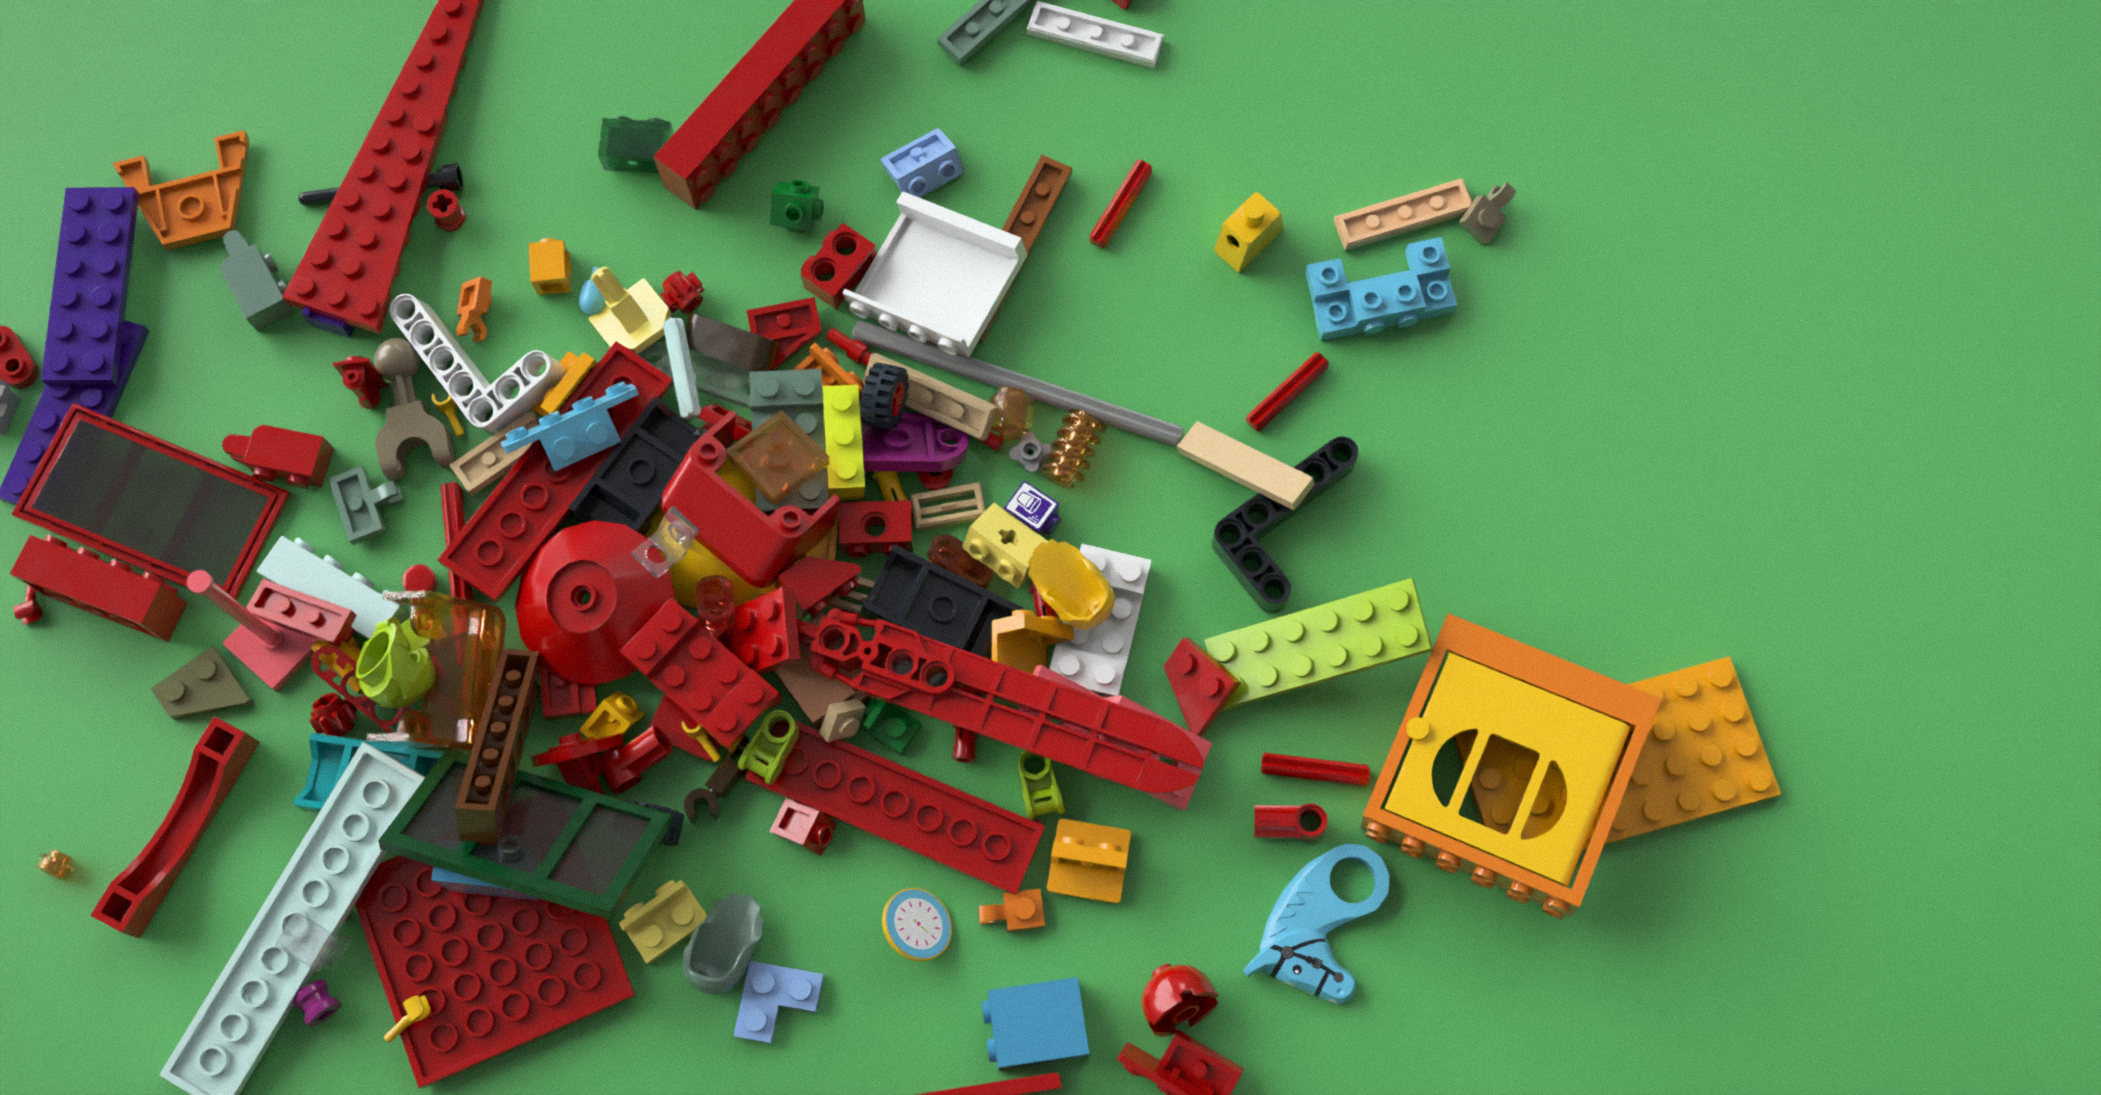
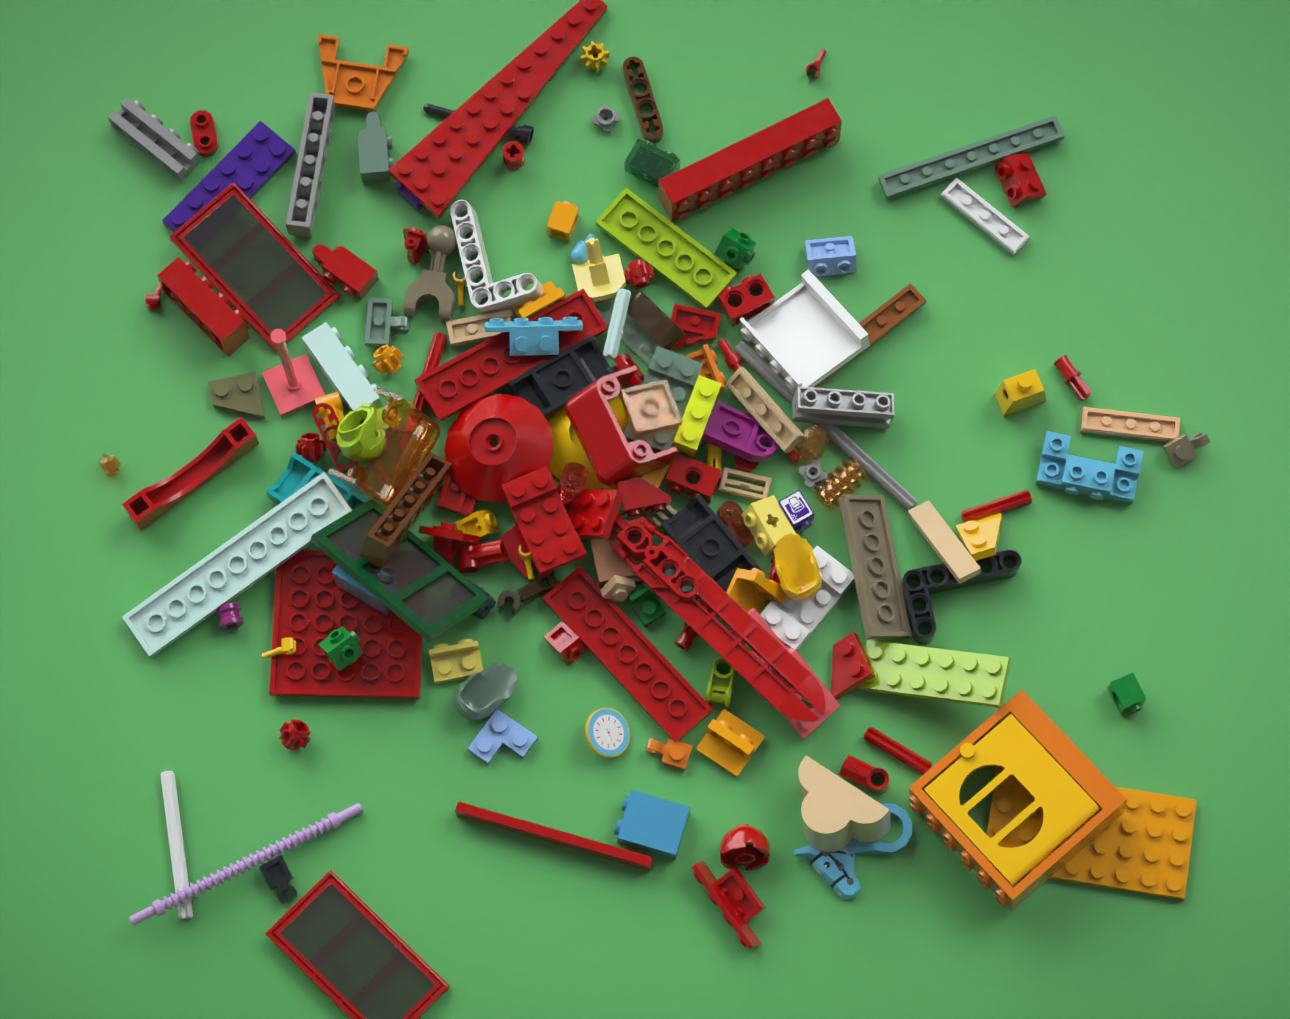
camera: 25 degrees right, 0 degrees up
(90, 286) = (273, 110): dark purple plate -> none
(173, 336) = (311, 165): none -> light grey brick
(302, 613) = (320, 376): plate -> none
(312, 943) = (243, 579): clear bracket -> none
(390, 550) = (387, 359): none -> light orange gear
(420, 578) = (397, 385): red piece -> none
(473, 303) = (503, 224): orange plate -> none
(493, 977) = (341, 647): none -> green brick
(499, 41) = (591, 62): none -> yellow gear
(543, 107) = (603, 112): none -> light grey plate
(589, 69) = (640, 100): none -> reddish brown beam
(672, 537) = (564, 429): clear bracket -> none
(703, 242) = (666, 247): none -> lime plate
(769, 748) = (565, 585): lime piece -> none
(884, 396) = (735, 397): black wheel -> none
(1030, 348) = (842, 407): none -> light grey brick
(1120, 204) = (947, 337): red axle -> none
(1170, 538) = (875, 567): none -> dark tan plate
(1279, 889) = (837, 810): none -> tan brick
(1287, 436) = (981, 535): none -> yellow wing
(1303, 186) = (1072, 378): none -> red axle
(1574, 558) = (1127, 694): none -> green brick

